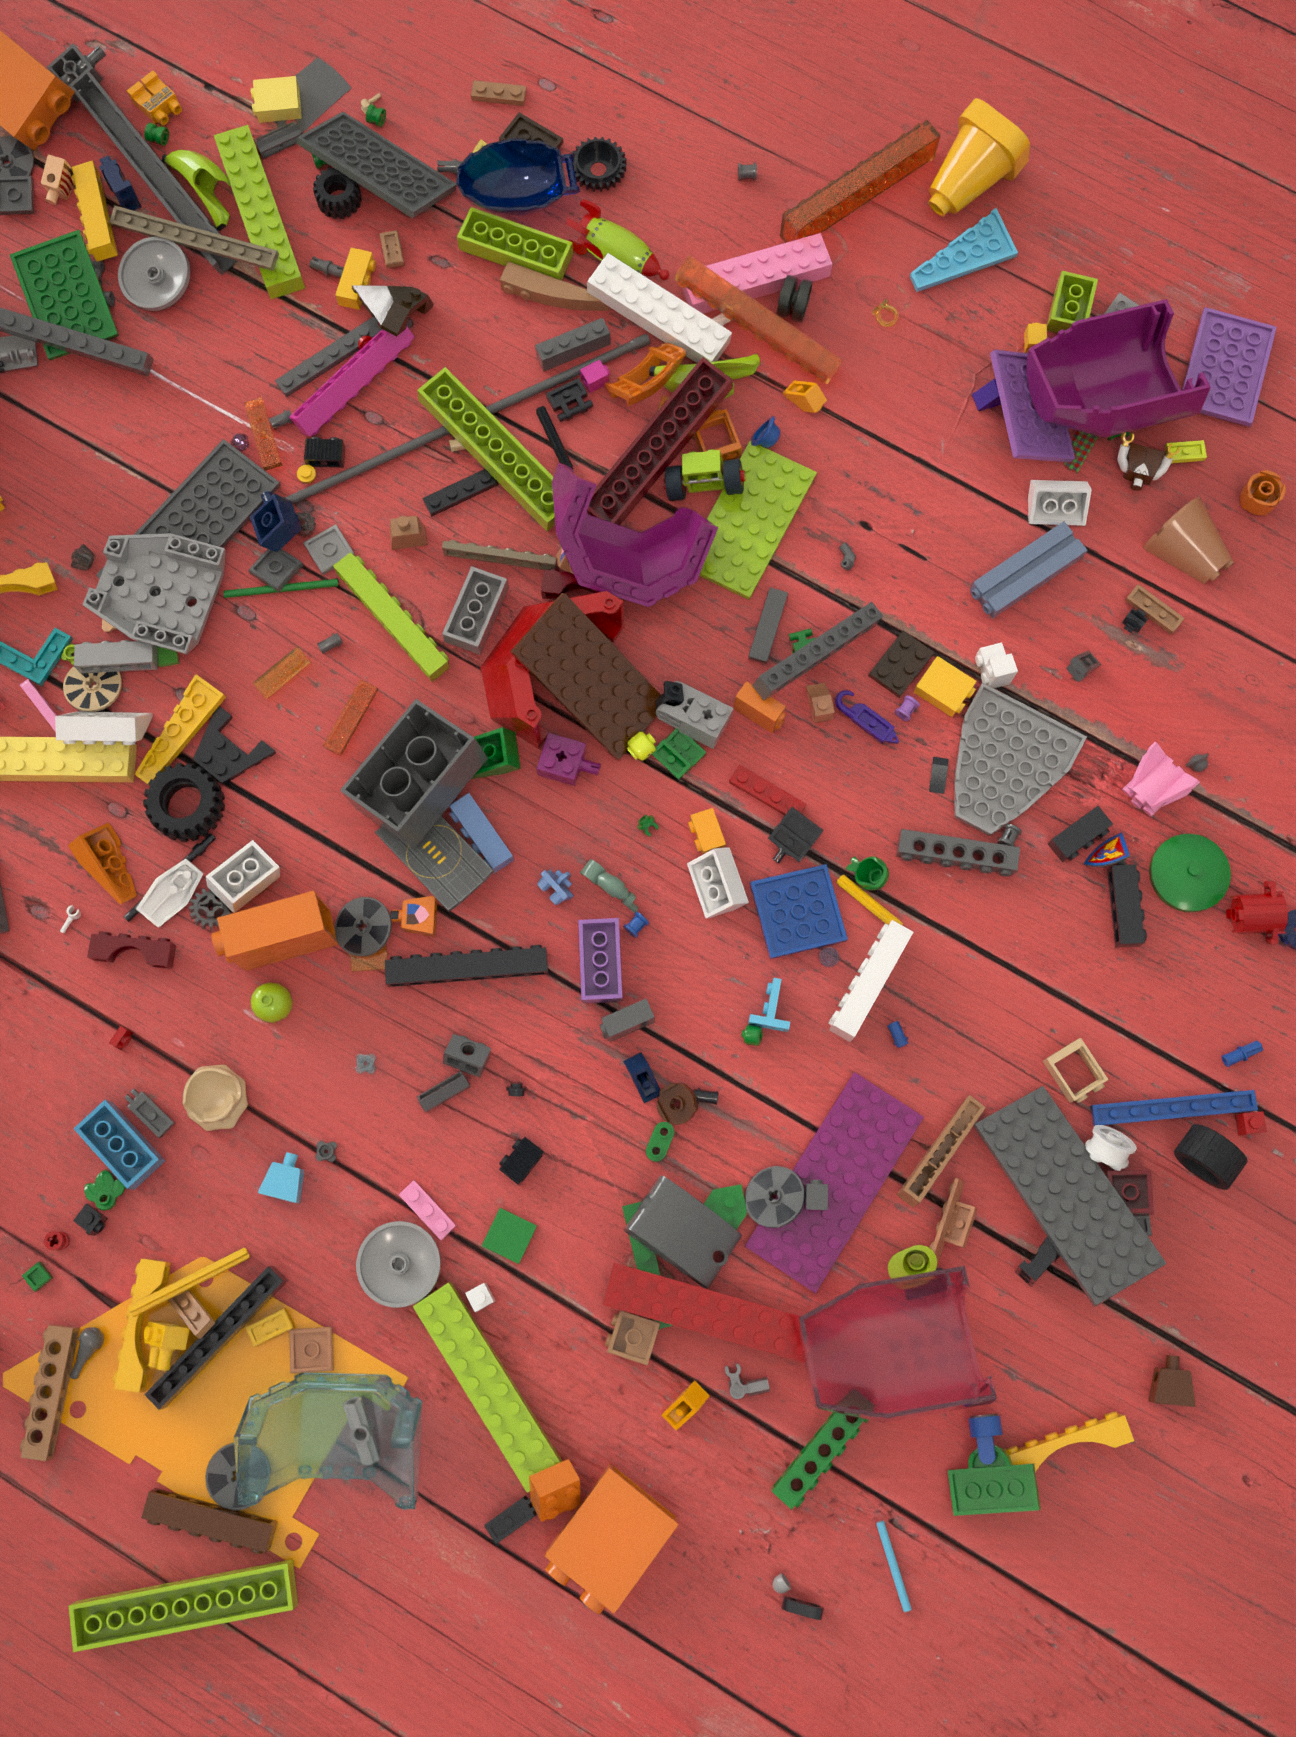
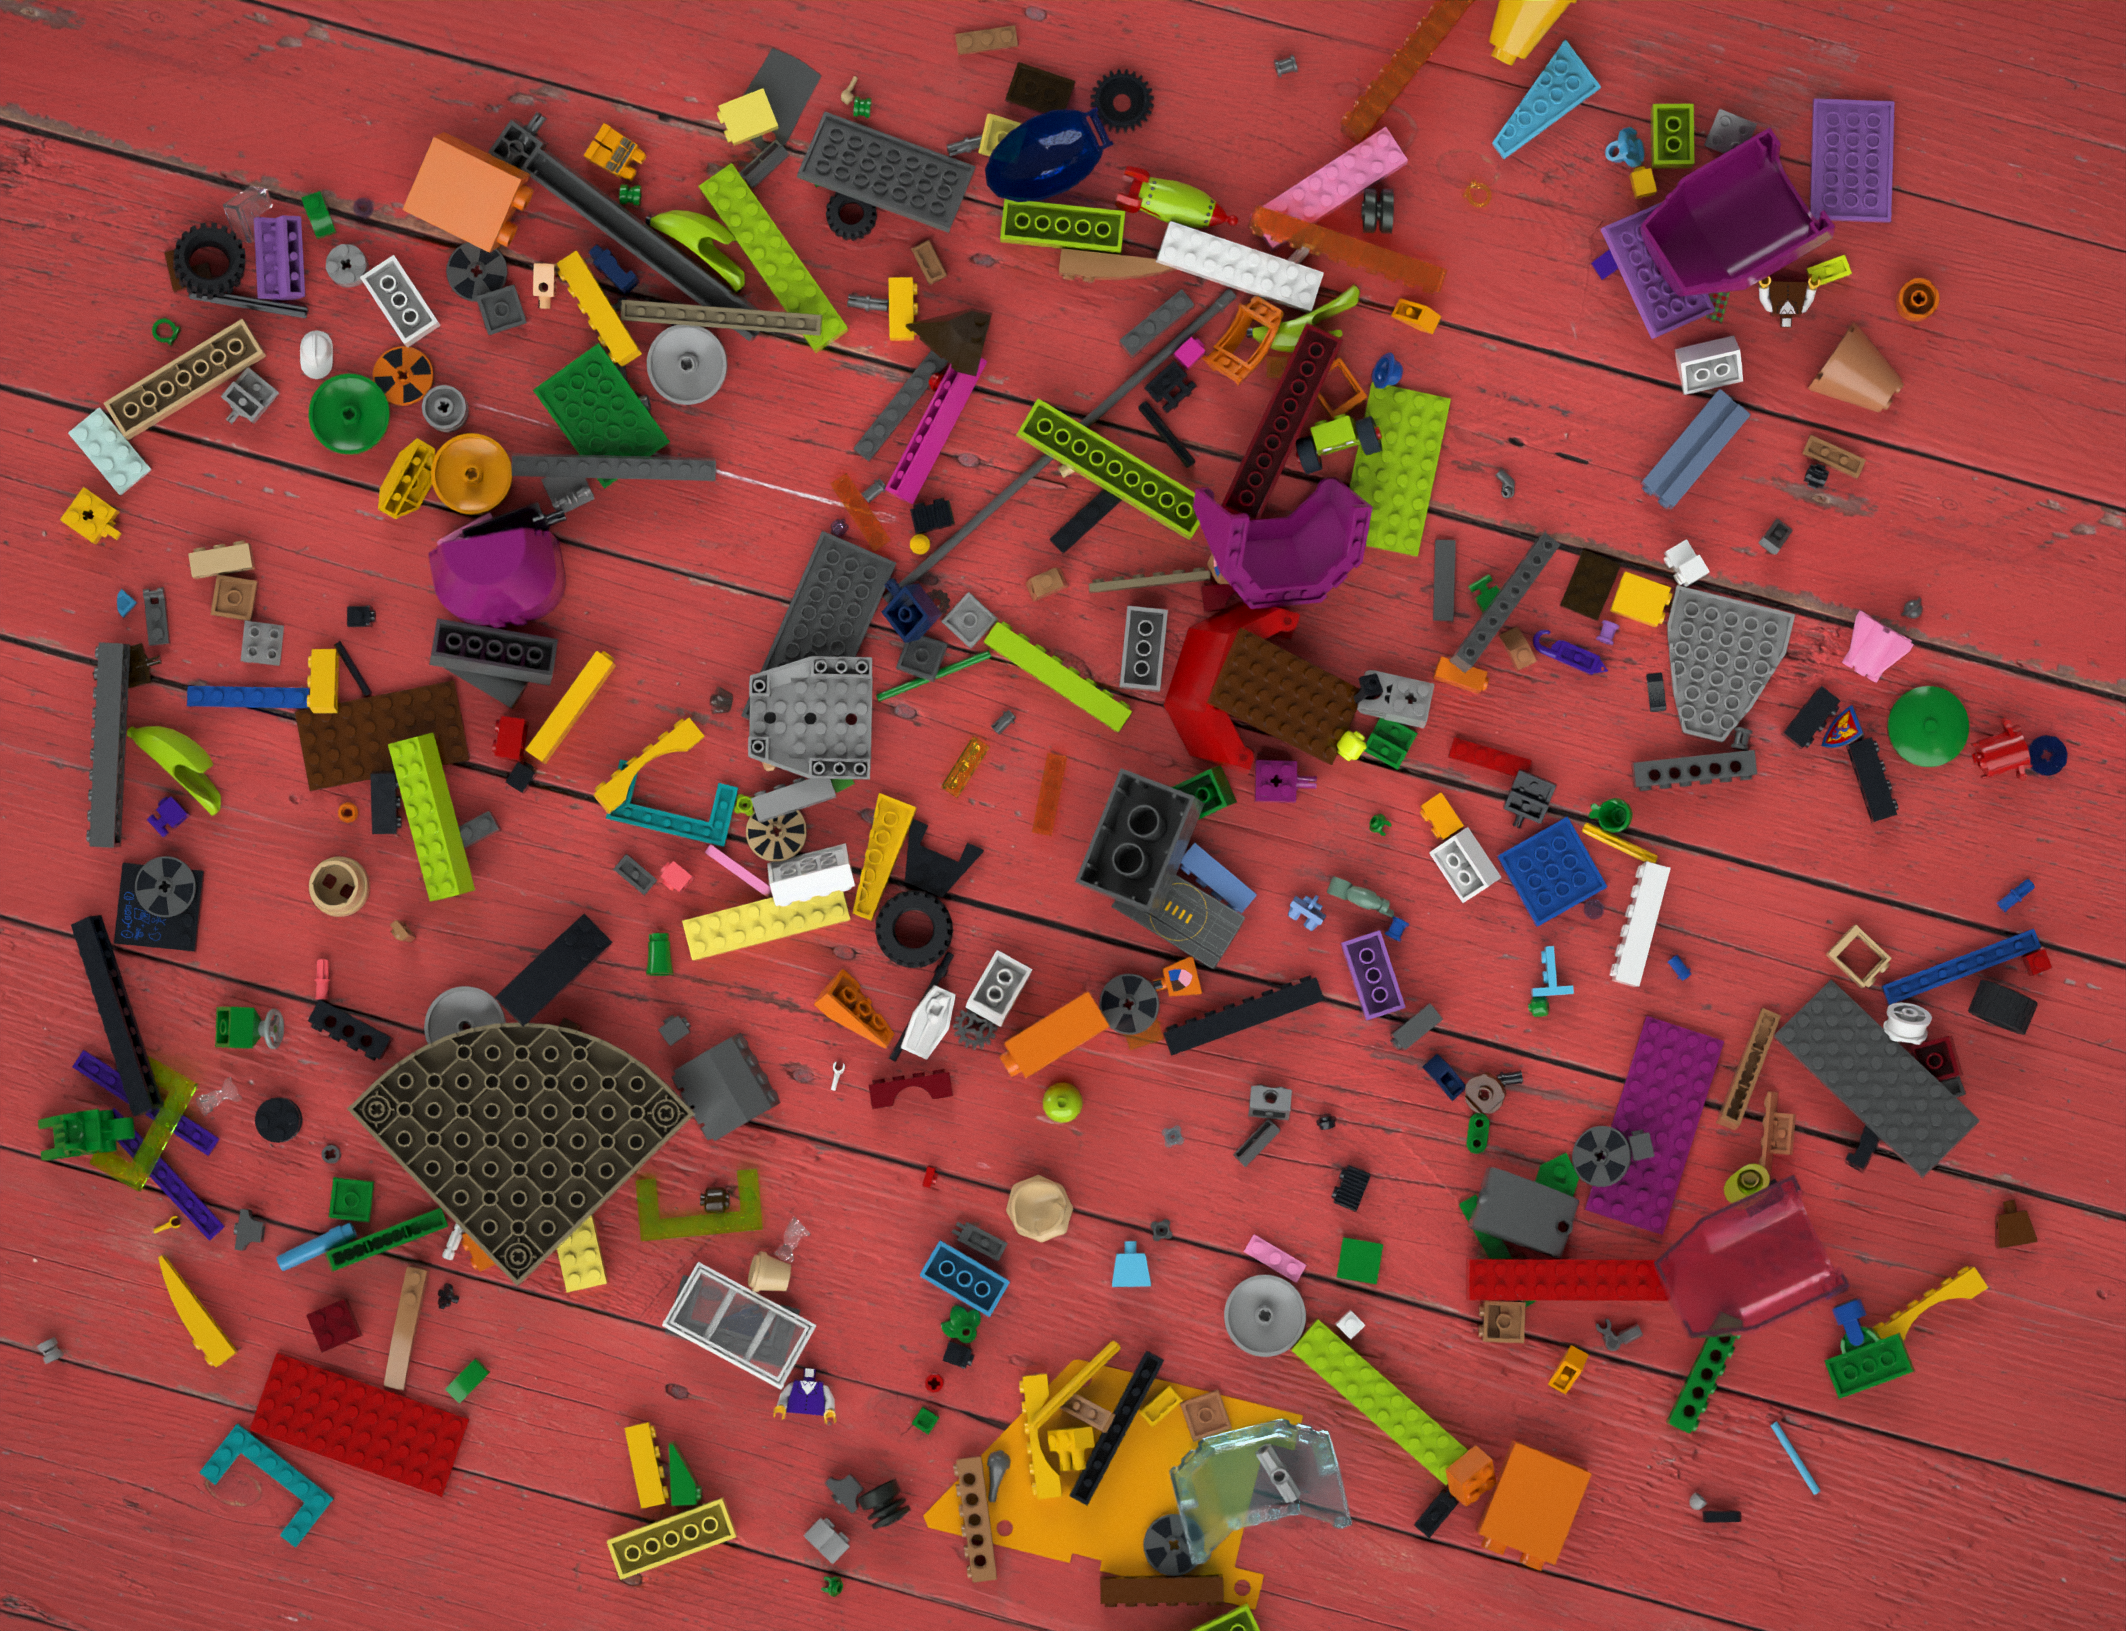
camera: 15 degrees left, 10 degrees up
(1029, 305) = (1630, 148): none -> dark azure tile

